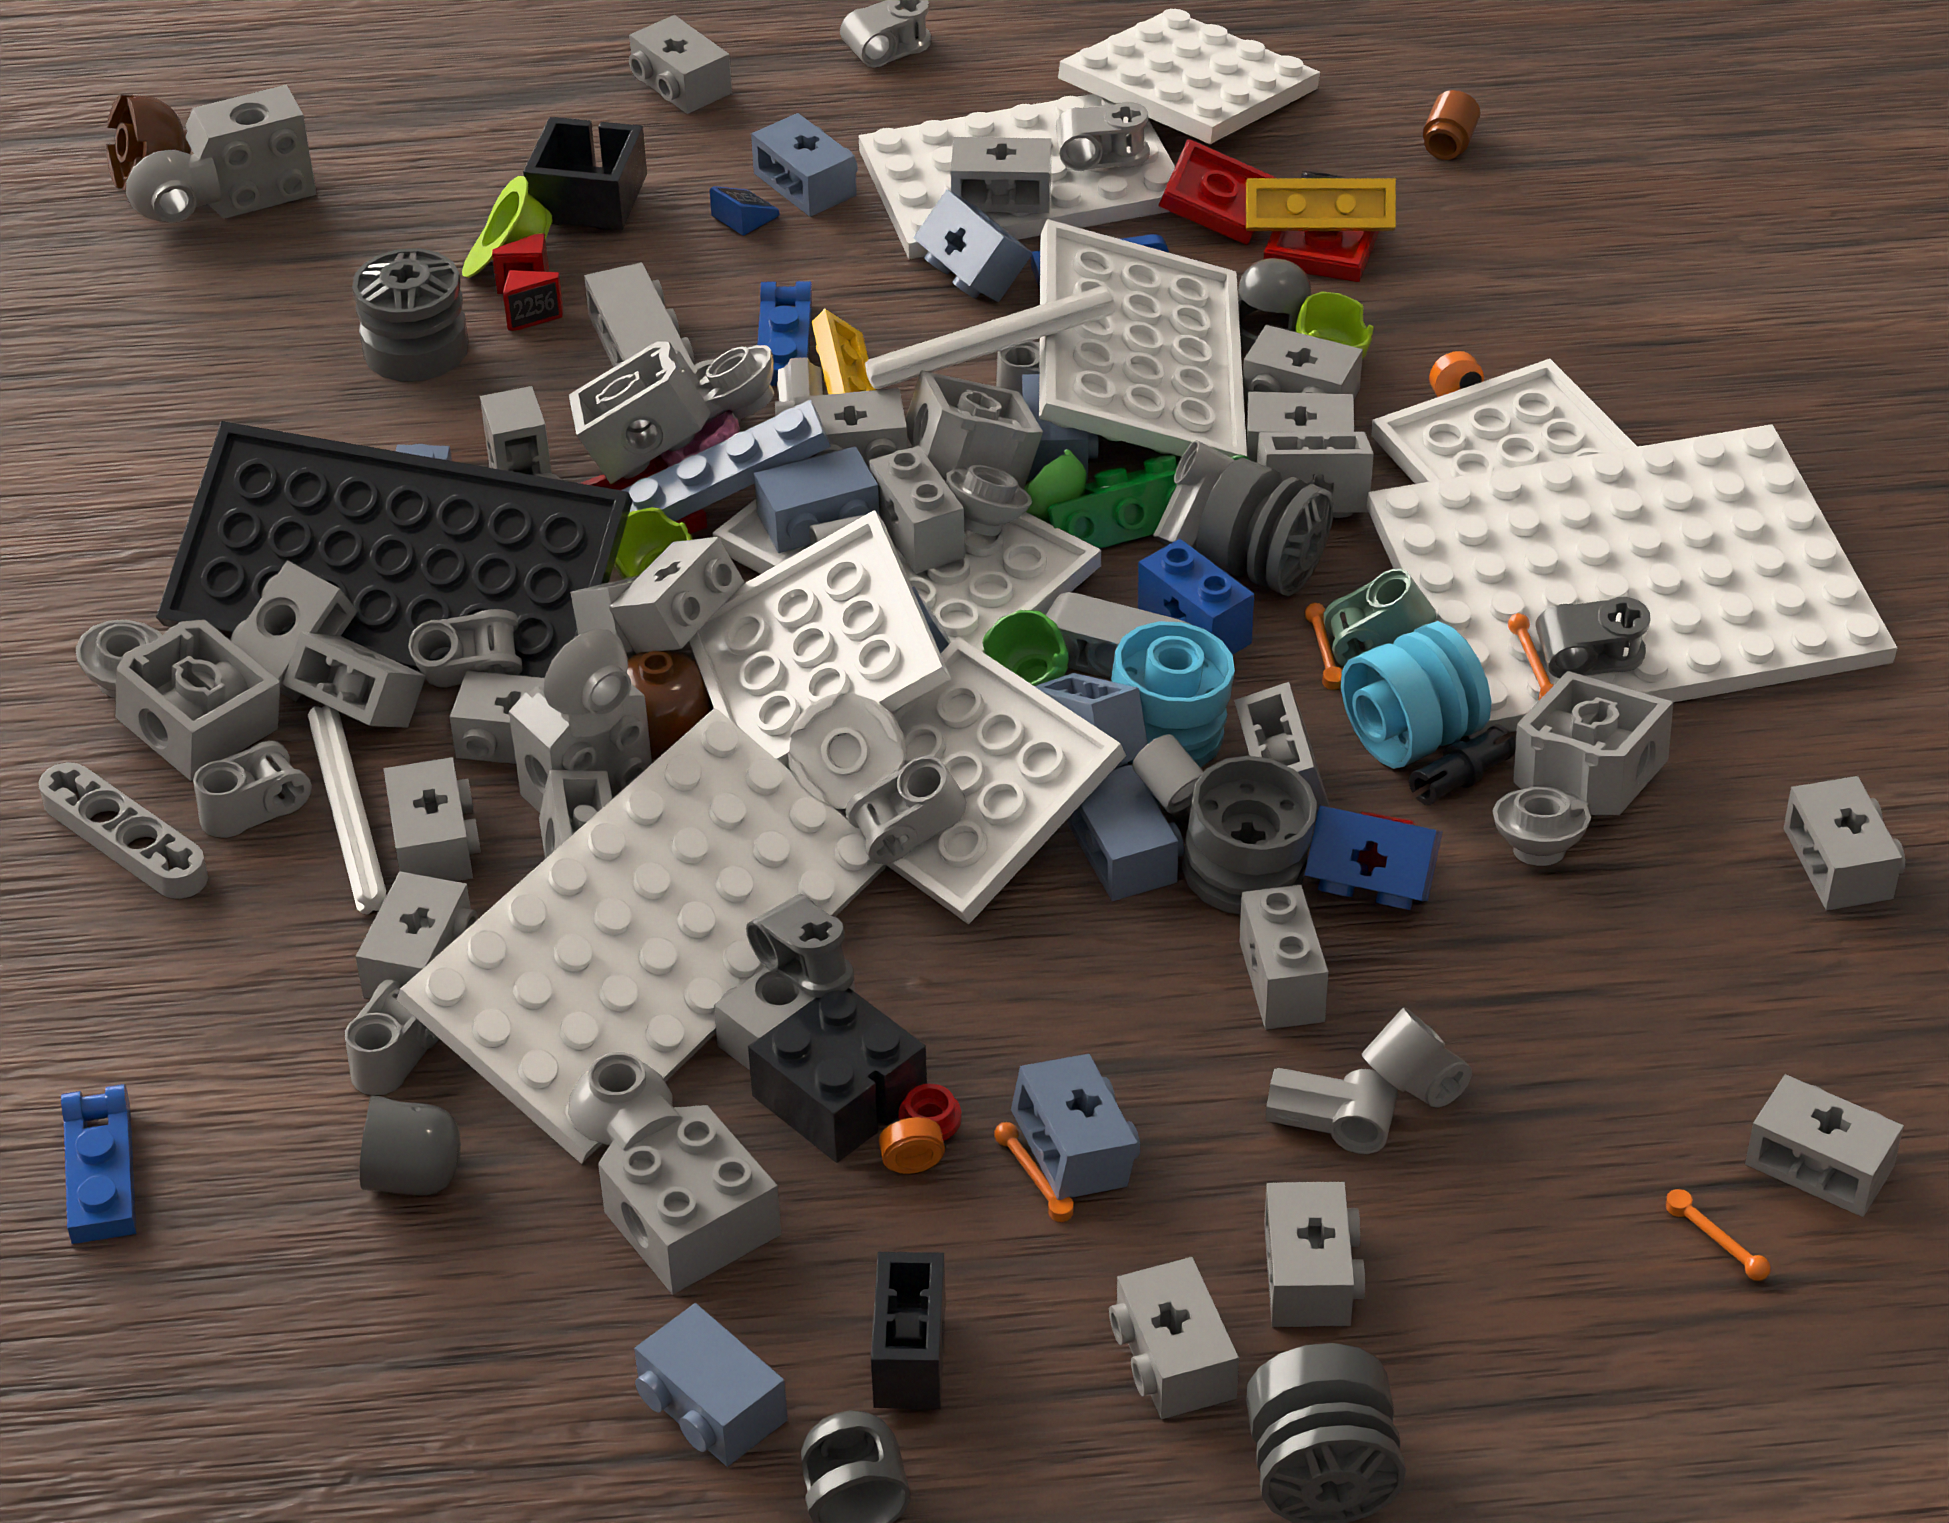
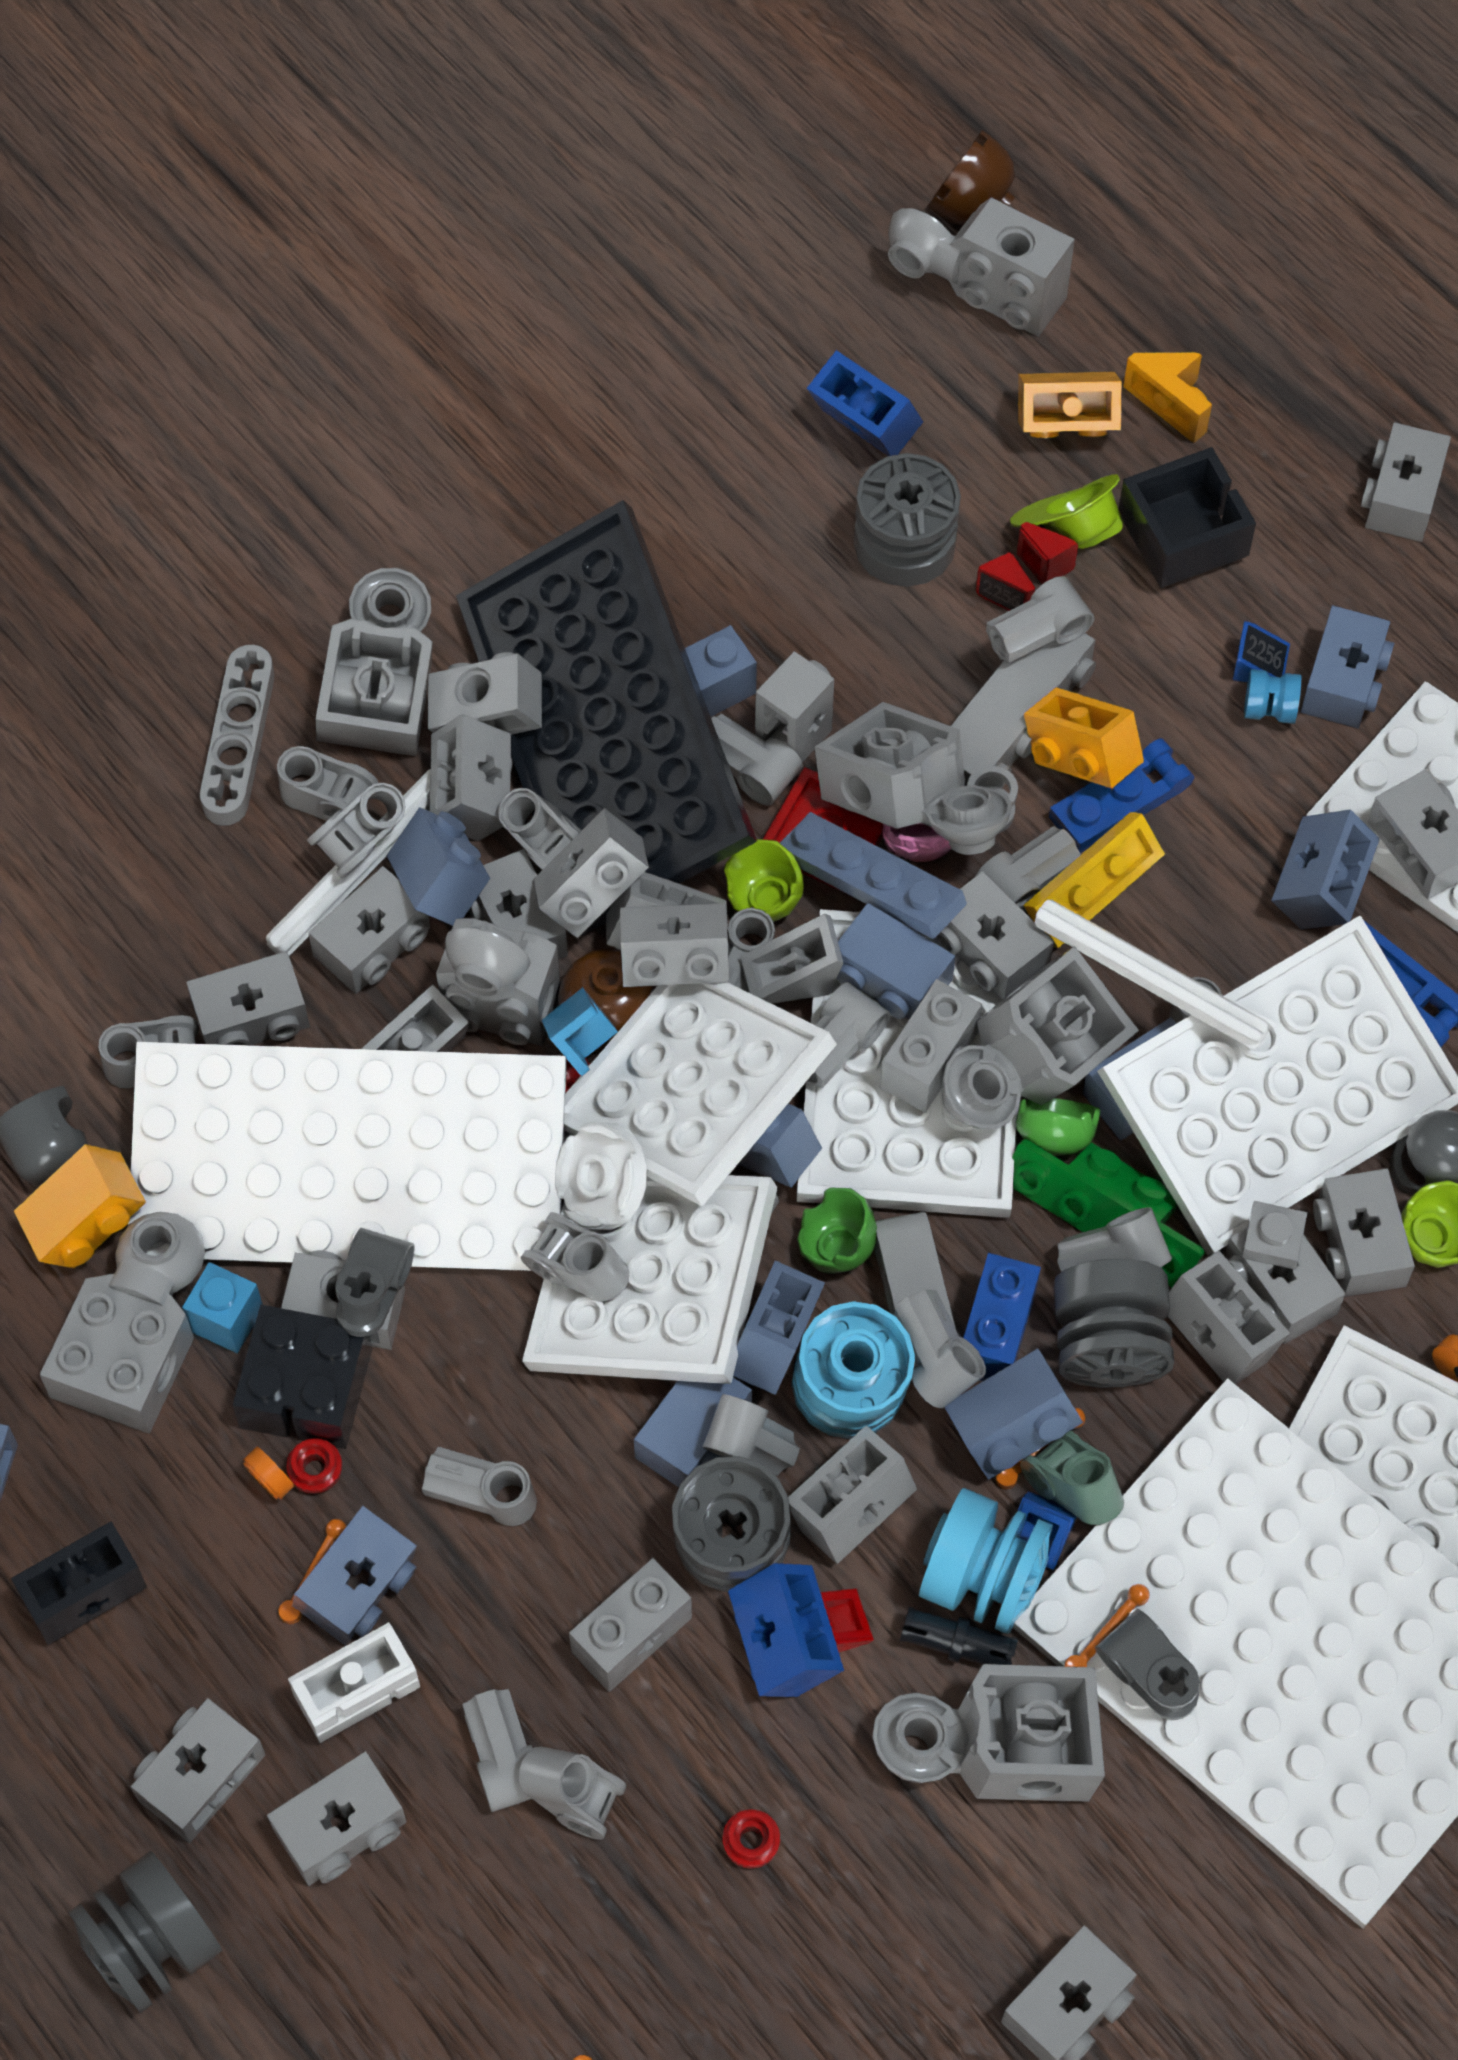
camera: 55 degrees right, 20 degrees up
(275, 289) = (865, 404): none -> blue brick
(330, 759) = (353, 832): none -> light grey piece
(408, 185) = (1069, 403): none -> light orange brick
(427, 723) = (438, 866): none -> sand blue brick
(453, 142) = (1166, 387): none -> light orange slope
(515, 1140) = (80, 1207): none -> light orange brick
(546, 608) = (590, 873): none -> light grey brick
(599, 266) = (1050, 615): none -> light grey piece
(682, 699) = (578, 1029): none -> dark azure panel
(716, 1080) = (223, 1307): none -> dark azure brick
(725, 304) = (1084, 737): none -> light orange brick
(765, 530) = (795, 964): none -> light grey slope
(785, 213) = (1284, 696): none -> dark azure wheel
(1070, 993) = (476, 1483): none -> light grey piece
(1186, 1167) = (354, 1682): none -> white brick
(1223, 615) = (943, 1359): none -> light grey piece
(1271, 401) = (1274, 1235): none -> light grey plate
(1295, 621) = (1013, 1414): none -> sand blue brick
(1544, 979) = (756, 1822): none -> red plate

